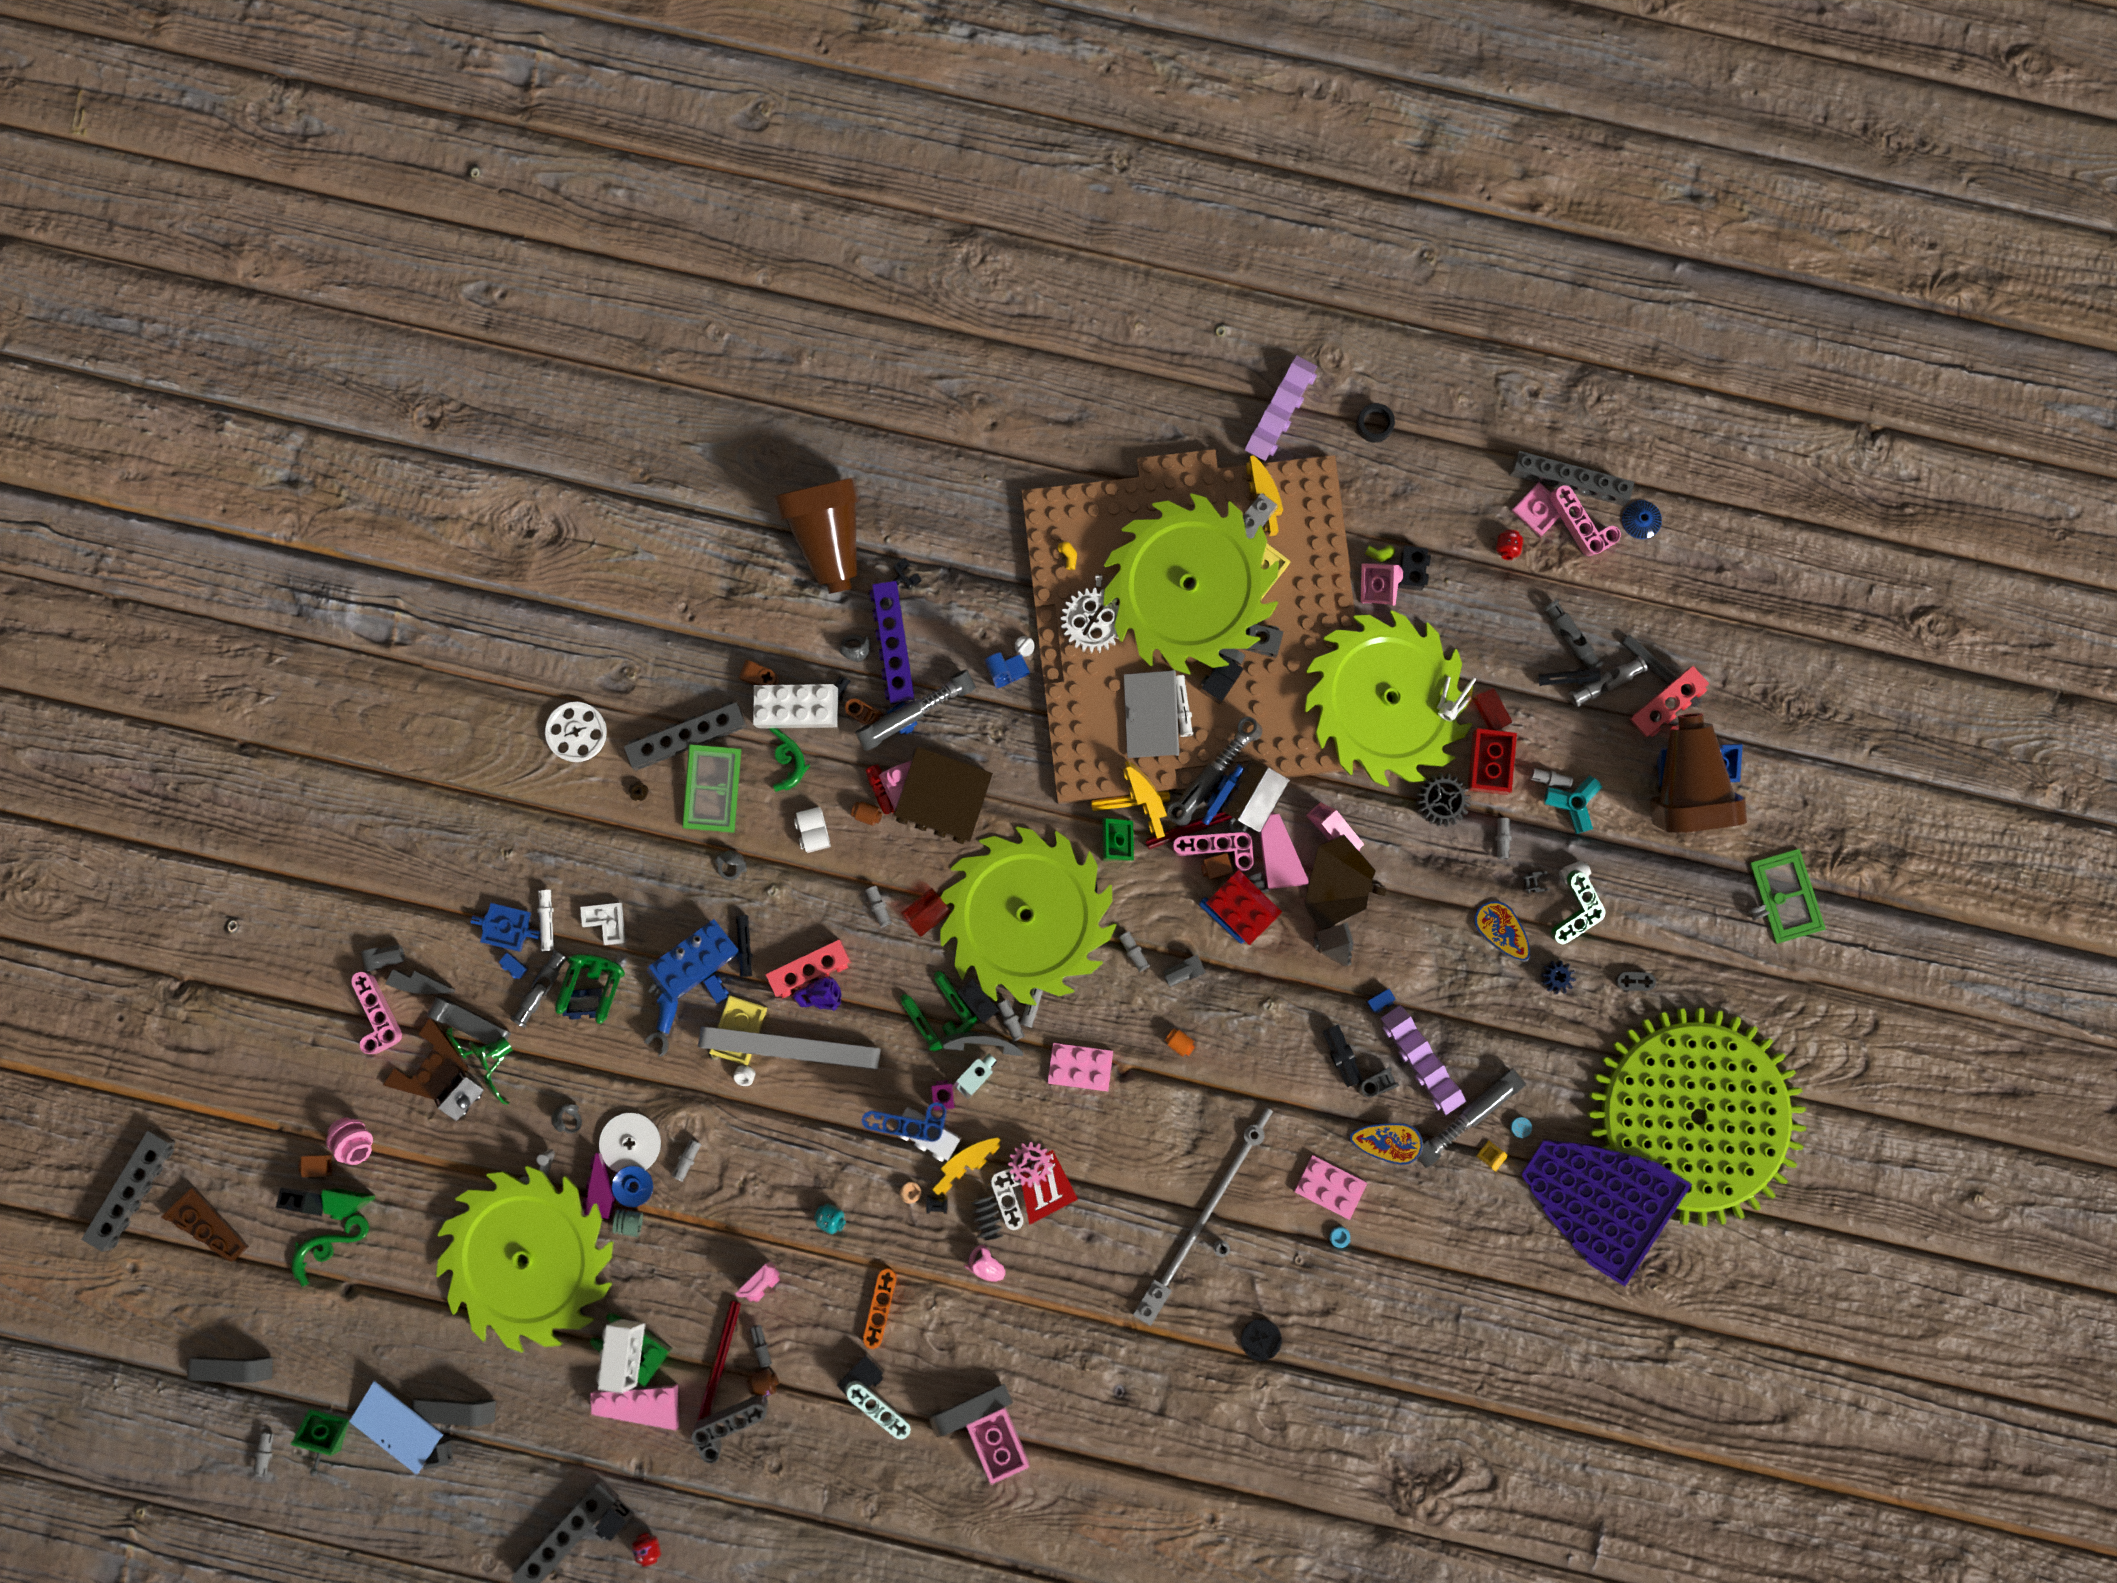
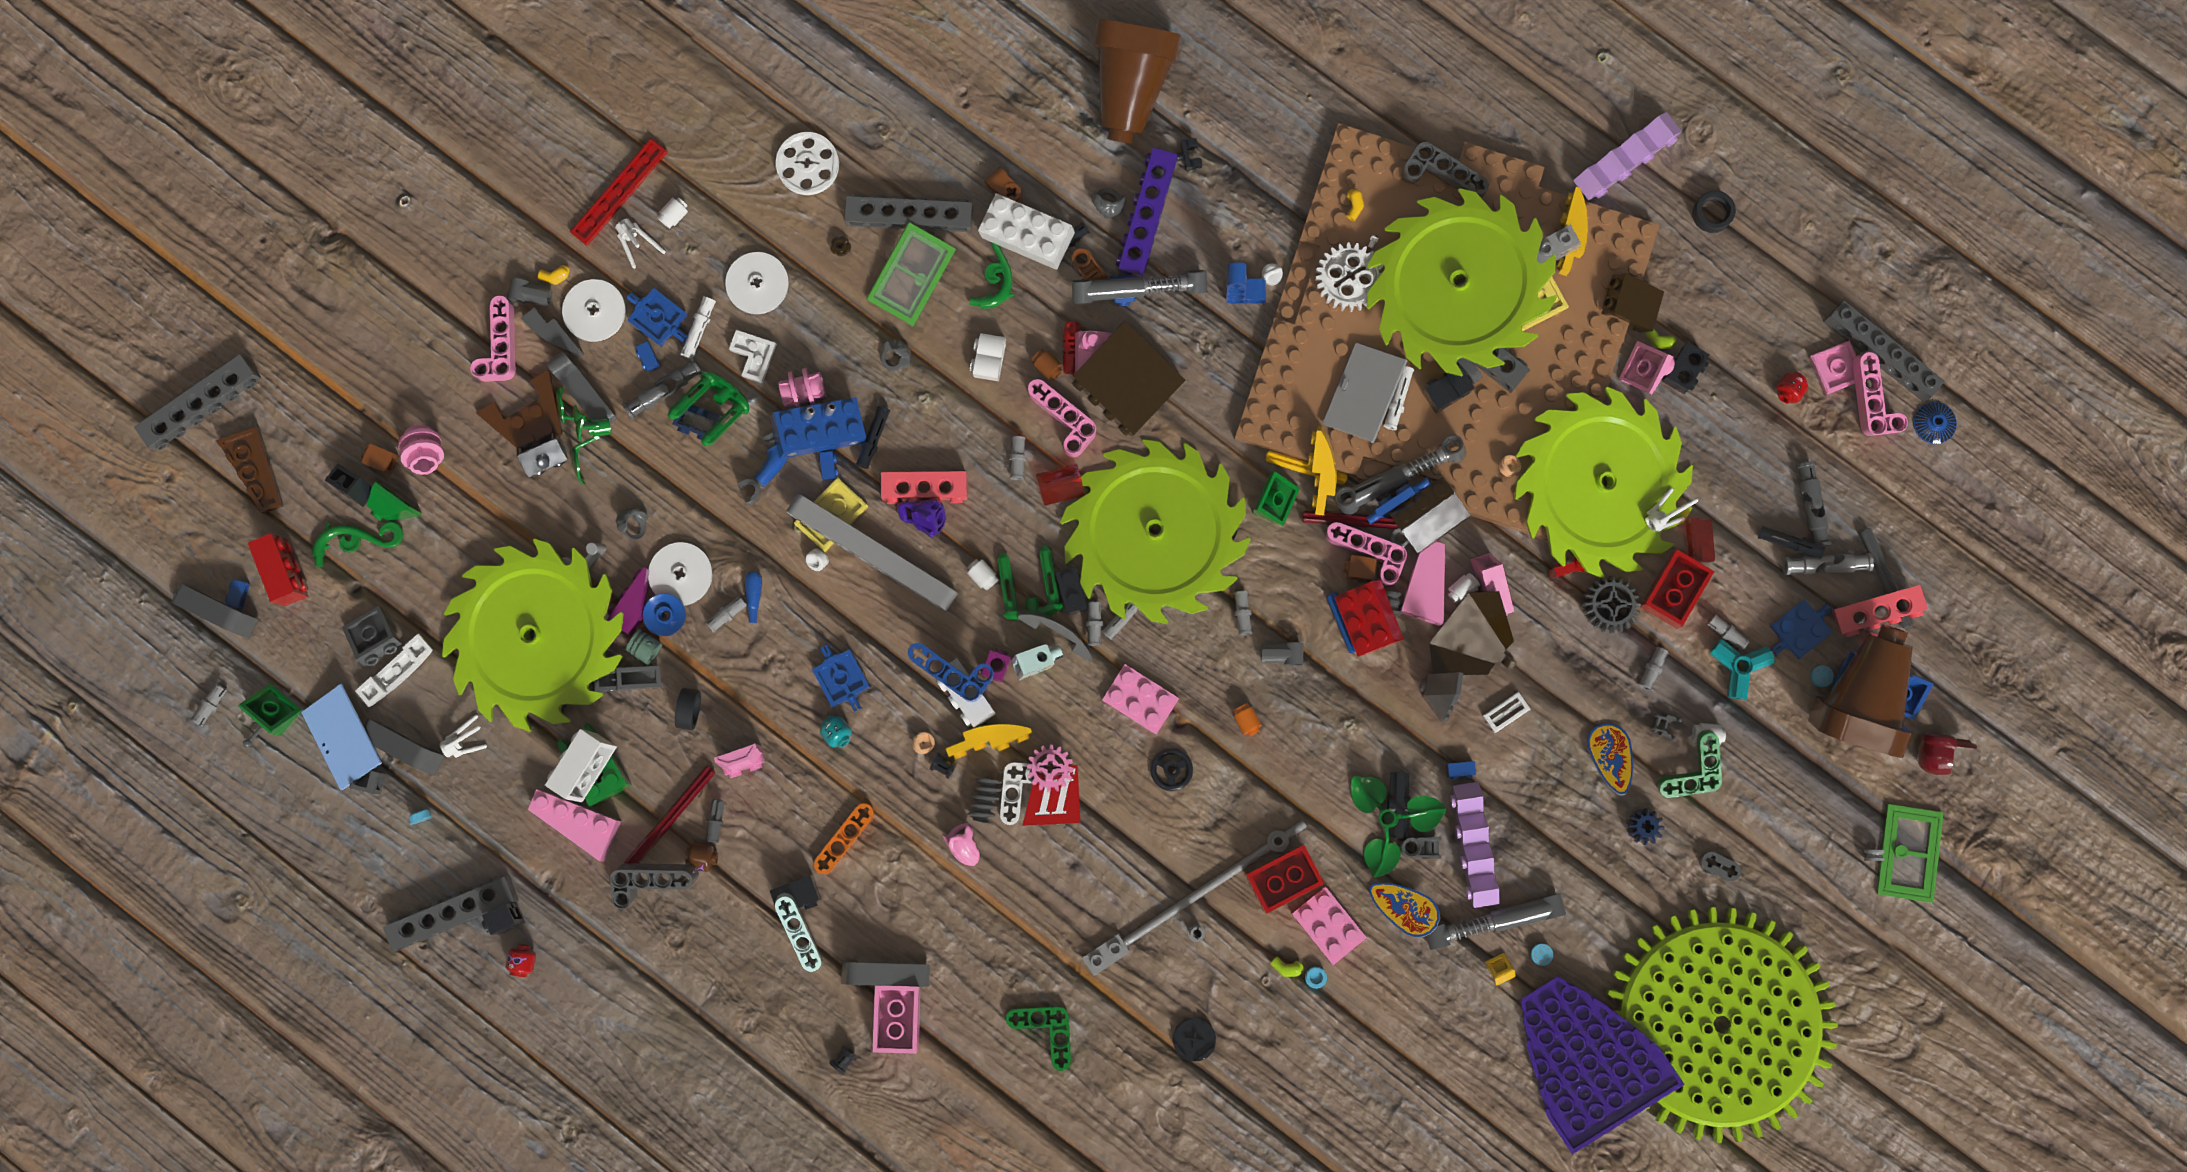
camera: 30 degrees right, 0 degrees up
(243, 1344) = (237, 594): none -> blue piece
(271, 1306) = (278, 569): none -> red brick
(381, 1326) = (371, 636): none -> dark grey plate
(399, 931) = (554, 277): none -> yellow arm
(417, 1347) = (395, 672): none -> white slope
(420, 832) = (618, 192): none -> red tile
(445, 864) = (627, 231): none -> white plant
(459, 955) = (586, 296): none -> white piece
(477, 828) = (672, 212): none -> white brick
(497, 1387) = (452, 744): none -> white plant
(498, 1464) = (420, 816): none -> medium azure tile
(564, 857) = (771, 289): none -> white piece
(628, 1257) = (629, 679): none -> dark grey slope
(663, 933) = (802, 389): none -> bright pink piece
(691, 1259) = (687, 708): none -> black tyre
(700, 1127) = (753, 589): none -> blue piece
(813, 1169) = (841, 678): none -> blue plate
(894, 1022) = (982, 574): none -> white brick
(896, 851) = (1059, 414): none -> bright pink beam
(968, 1501) = (843, 1060): none -> black bush
(1135, 495) = (1446, 175): none -> dark grey beam
(1136, 1385) = (1055, 1027): none -> green beam
(1144, 1103) = (1171, 786): none -> black piece
(1275, 1166) = (1284, 879): none -> red brick
(1303, 721) = (1509, 465): none -> light nougat tile
(1311, 842) = (1462, 587): none -> white brick
(1312, 1242) = (1287, 970): none -> lime arm
(1343, 532) = (1633, 301): none -> dark brown panel
(1367, 1053) = (1424, 814): none -> green plant
(1386, 791) = (1559, 570): none -> red plate
(1388, 947) = (1491, 722): none -> white tile
(1611, 747) = (1801, 629): none -> blue plate
(1646, 779) = (1821, 676): none -> medium azure tile
(1771, 799) = (1937, 752): none -> dark red piece

